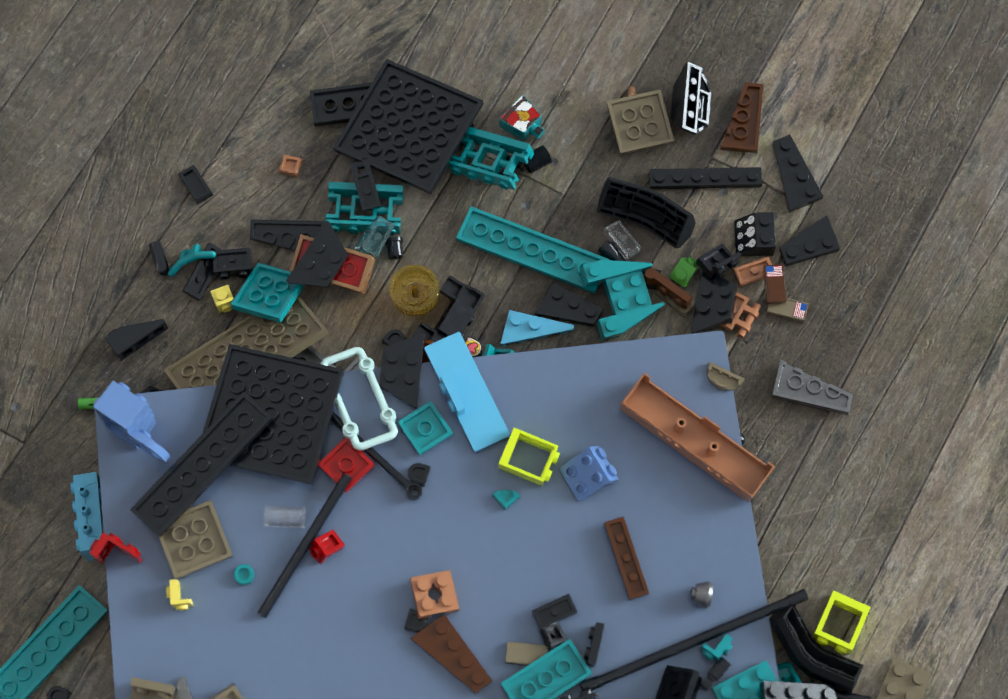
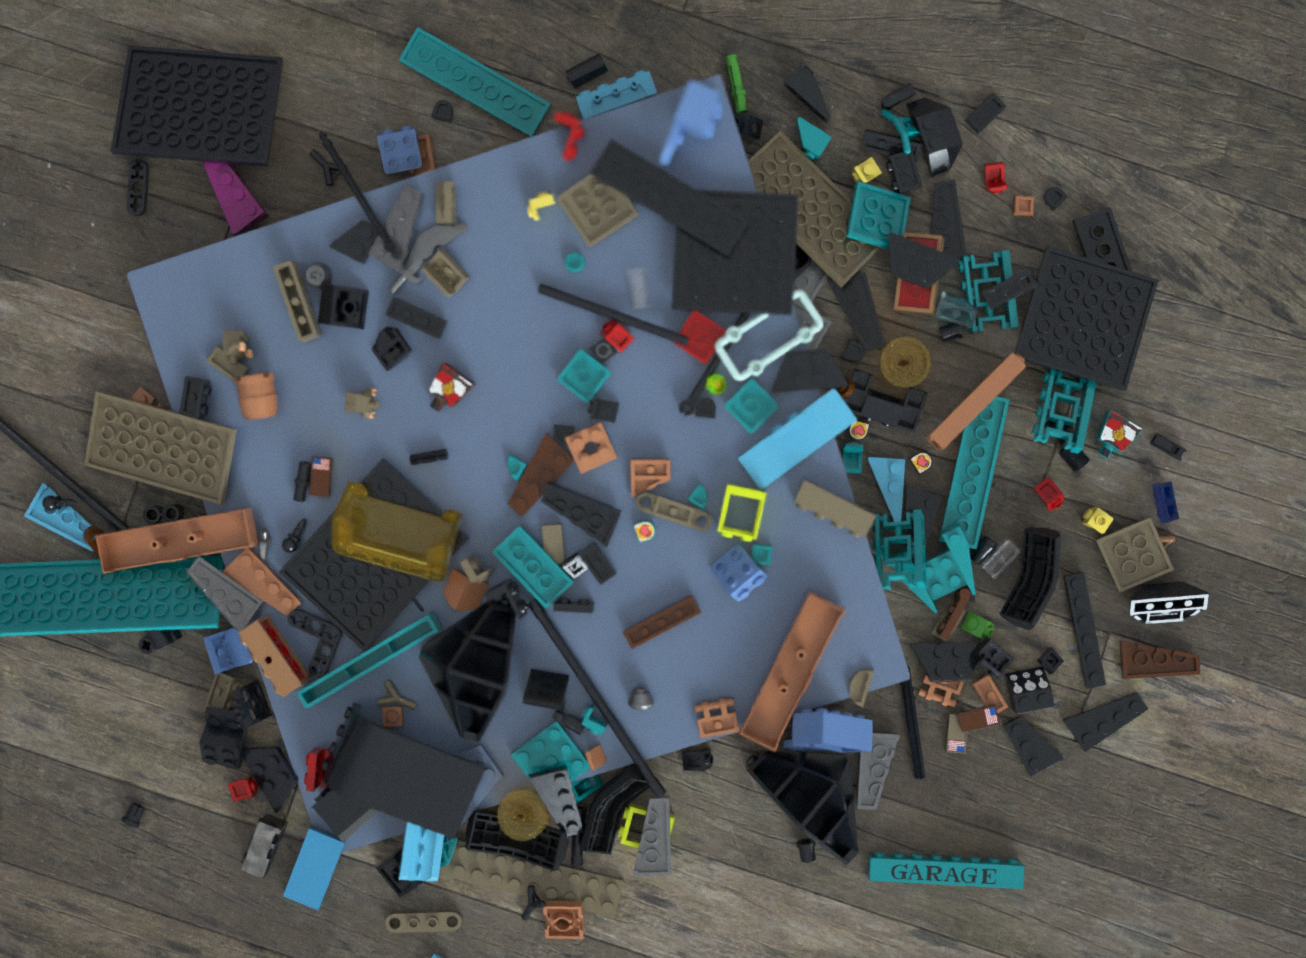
camera: 80 degrees right, 20 degrees up
(56, 544) = (586, 71): none -> black brick
(178, 342) = (812, 139): none -> teal slope
(203, 227) = (937, 133): none -> black wedge
(257, 185) = (995, 177): none -> red bracket
(289, 138) = (1054, 197): none -> black tile
(339, 563) = (603, 350): none -> black tile
(355, 326) = (860, 309): none -> black wing
(360, 587) = (584, 376): none -> teal plate
(396, 458) = (716, 384): none -> clear neon green tile
(399, 574) = (603, 410): none -> black bracket
(439, 677) = (516, 466): none -> teal tile
(466, 232) = (975, 401): none -> nougat brick
(472, 542) = (648, 473): none -> nougat wing
(500, 613) = (588, 514): none -> black wing
(515, 296) = (921, 462): none -> tile
(515, 524) = (673, 511): none -> dark tan plate
(530, 558) = (644, 530): none -> tile
(541, 368) = (834, 508): none -> dark tan brick
(543, 80) = (1166, 445): none -> black bar
(568, 186) = (1049, 494): none -> red bracket
(574, 446) = (761, 554): none -> teal tile
(595, 88) = (1165, 502): none -> clear blue bracket
(597, 310) = (914, 548): none -> teal fence
(599, 147) = (1097, 519): none -> light yellow bracket
(729, 212) = (1050, 660): none -> black tile
(740, 522) = (717, 724): none -> nougat plate
(756, 654) = (595, 756): none -> nougat slope
(766, 418) = (830, 732): none -> medium blue brick
(776, 559) = (697, 759): none -> black bracket
(777, 347) = (913, 730): none -> black axle
(824, 447) = (813, 793): none -> black panel
(854, 611) = (655, 843): none -> flat silver wing
(884, 468) = (807, 850): none -> black bush
(923, 341) = (945, 870): none -> teal brick

